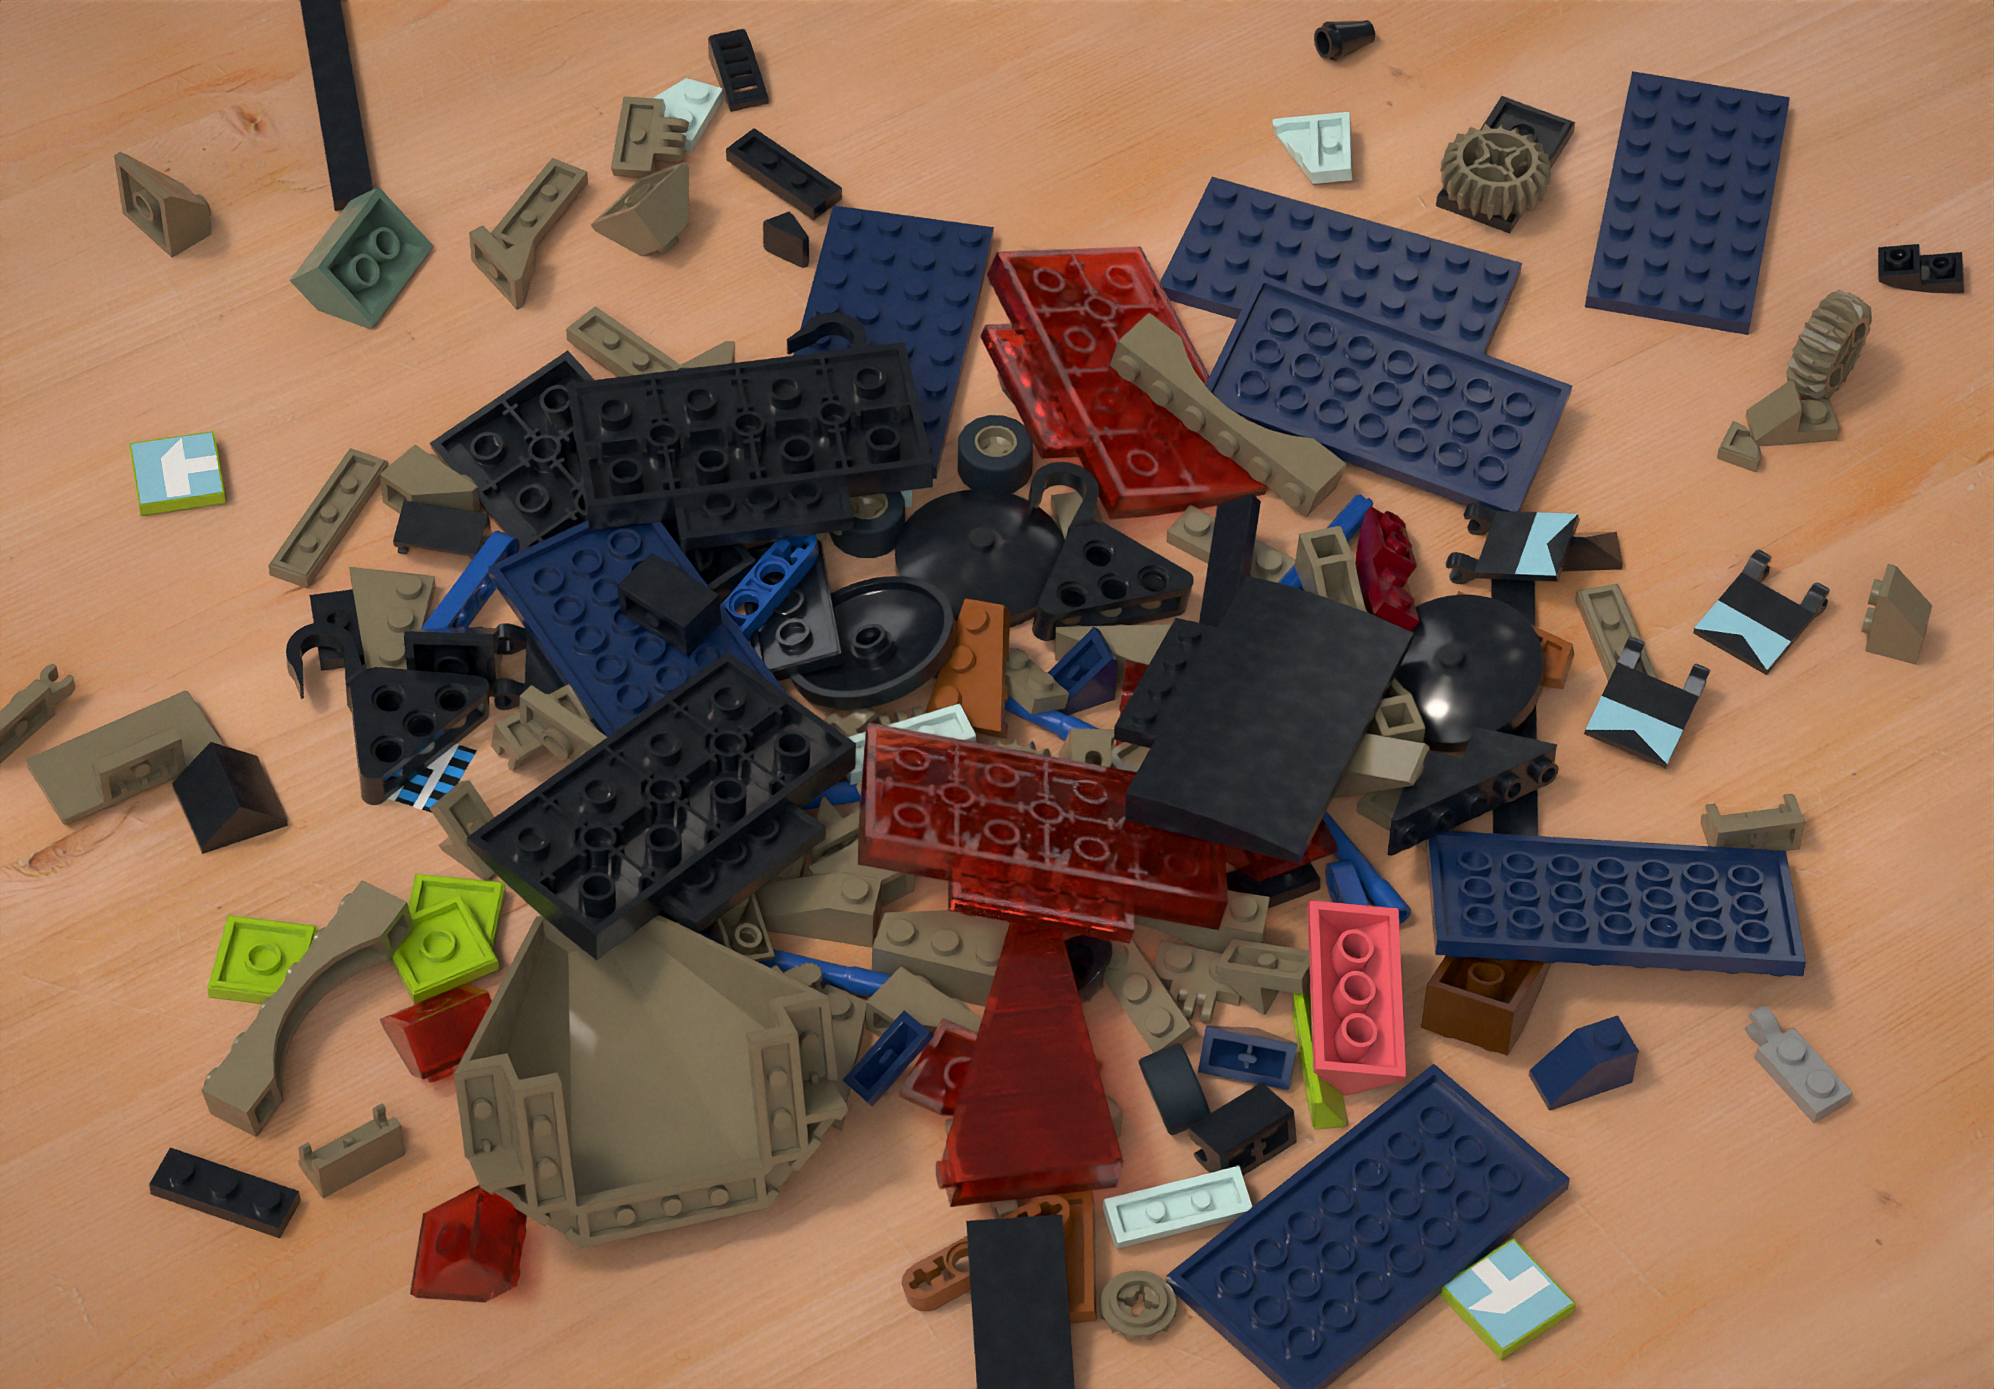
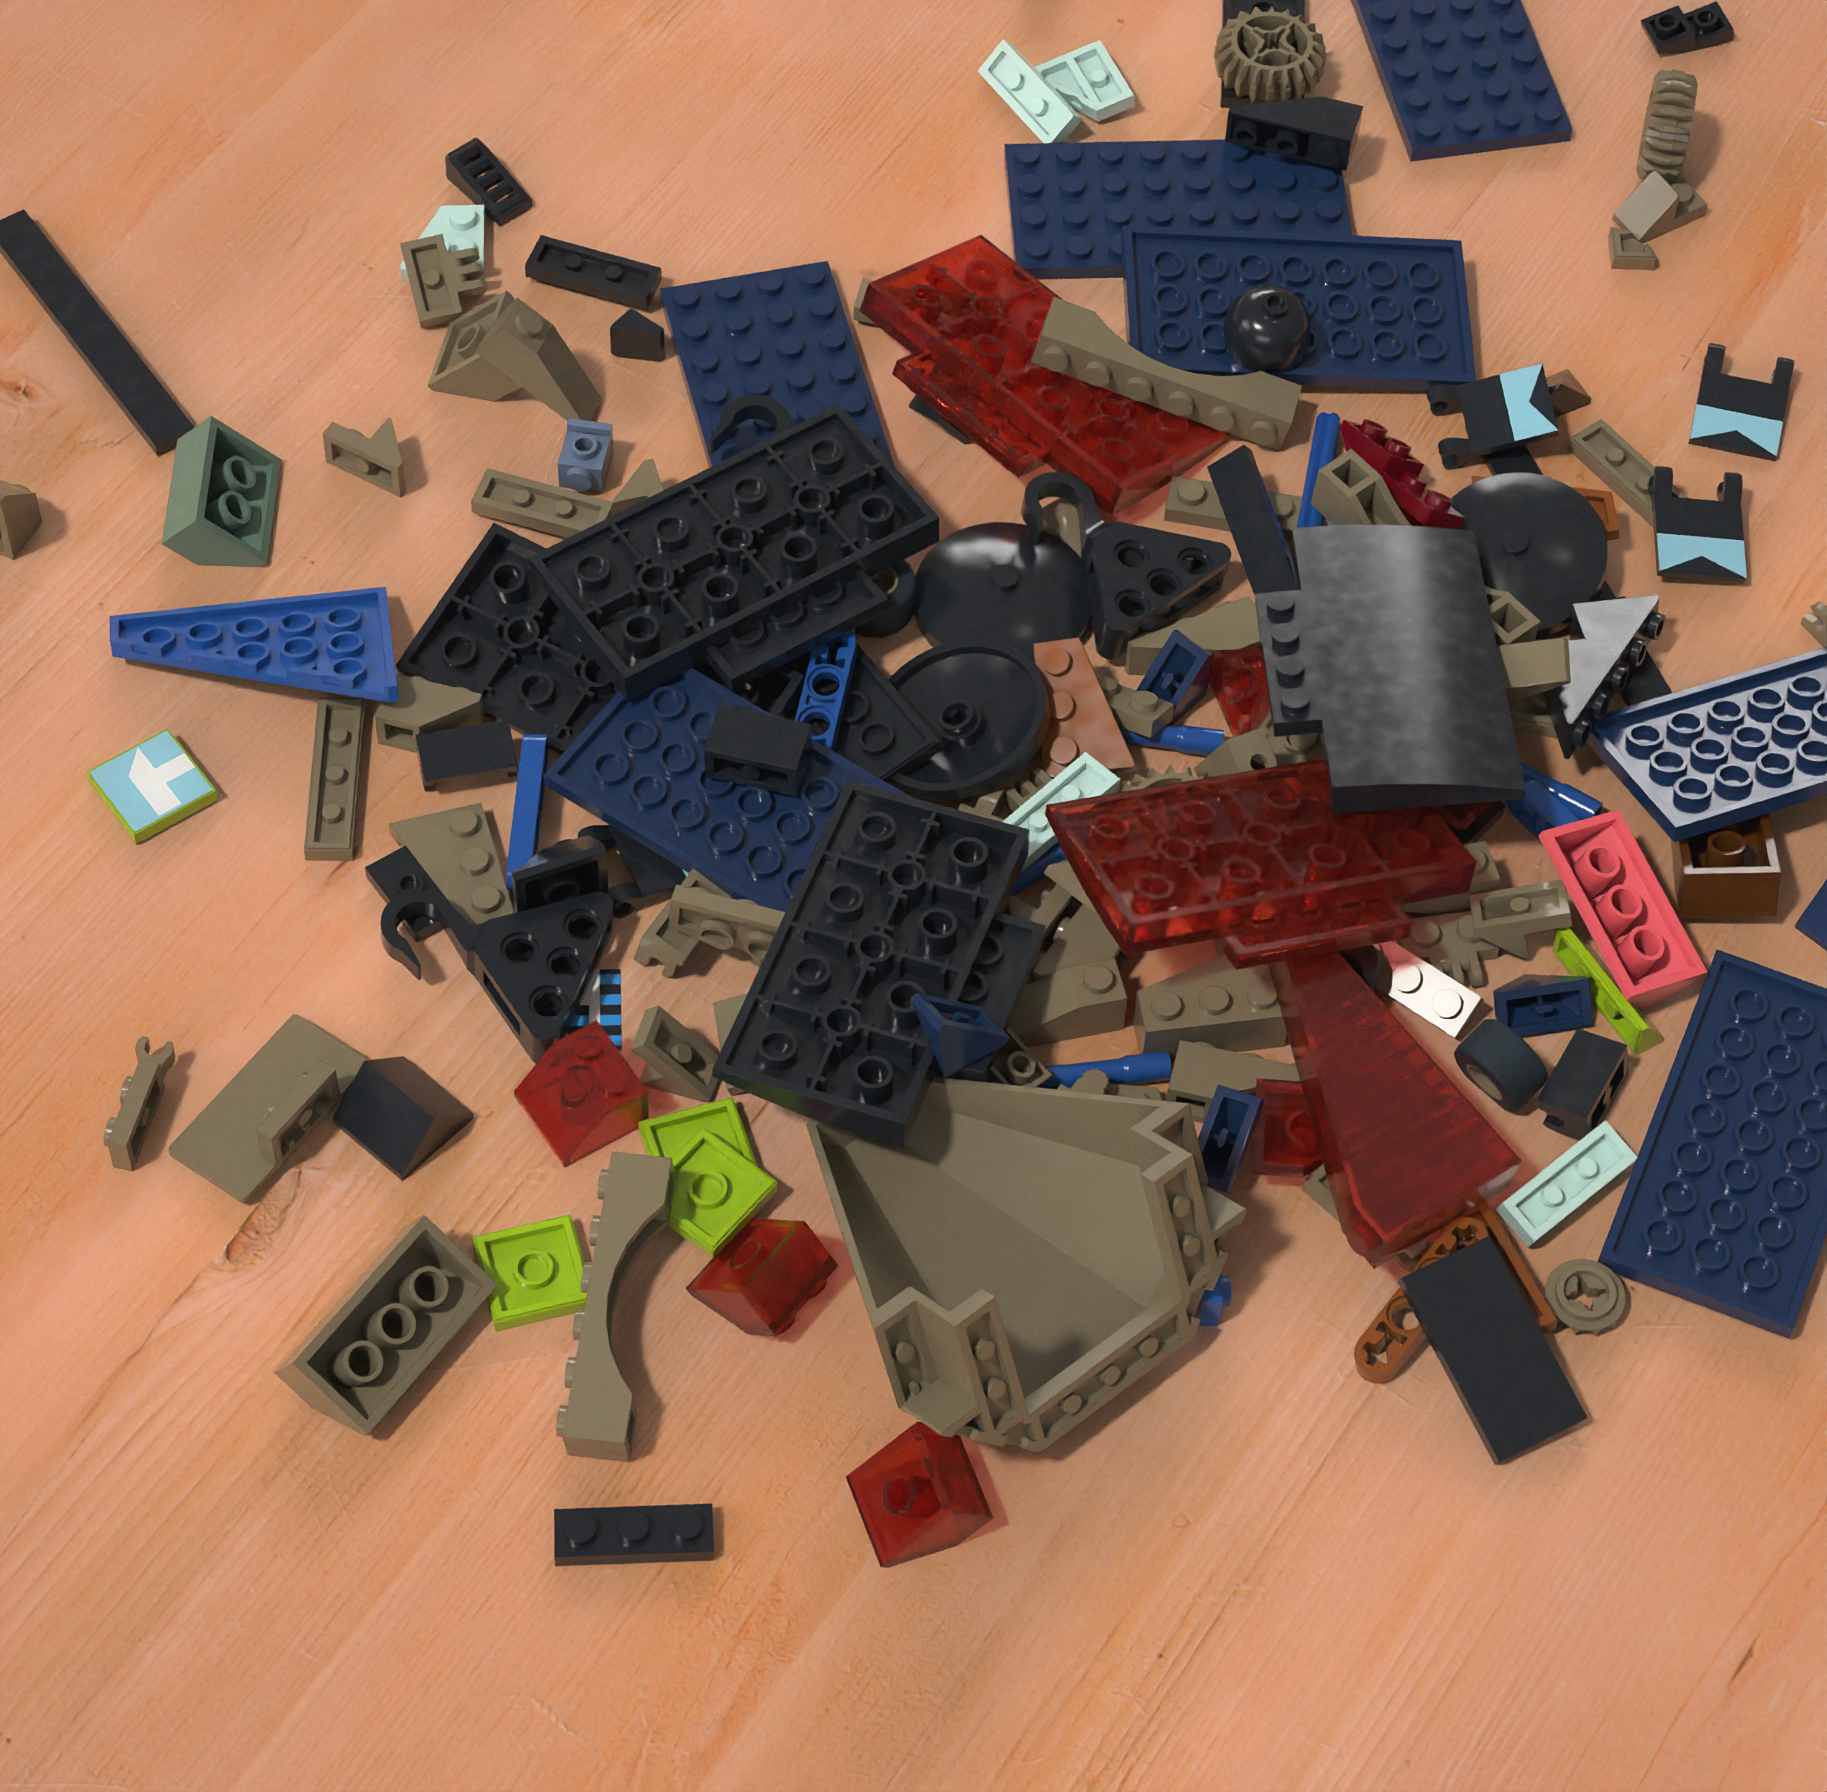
camera: 25 degrees left, 5 degrees up
(115, 955) = (387, 1327): none -> dark tan slope
(353, 1154) = (742, 1440): dark tan hinge -> none
(355, 396) = (302, 641): none -> blue wing
(380, 835) = (583, 1095): none -> clear red slope
(542, 203) = (370, 380): dark tan plate -> none
(682, 232) = (539, 361): none -> dark tan slope
(686, 324) = (586, 455): none -> sand blue brick
(686, 878) = (957, 1031): none -> dark blue slope
(811, 1181) = (1212, 1302): none -> blue plate
(995, 454) = (962, 487): black wheel -> none
(1259, 140) = (1029, 94): none -> light aqua plate
(1338, 404) = (1267, 329): none -> black cylinder
(1483, 243) = (1303, 129): none -> black slope

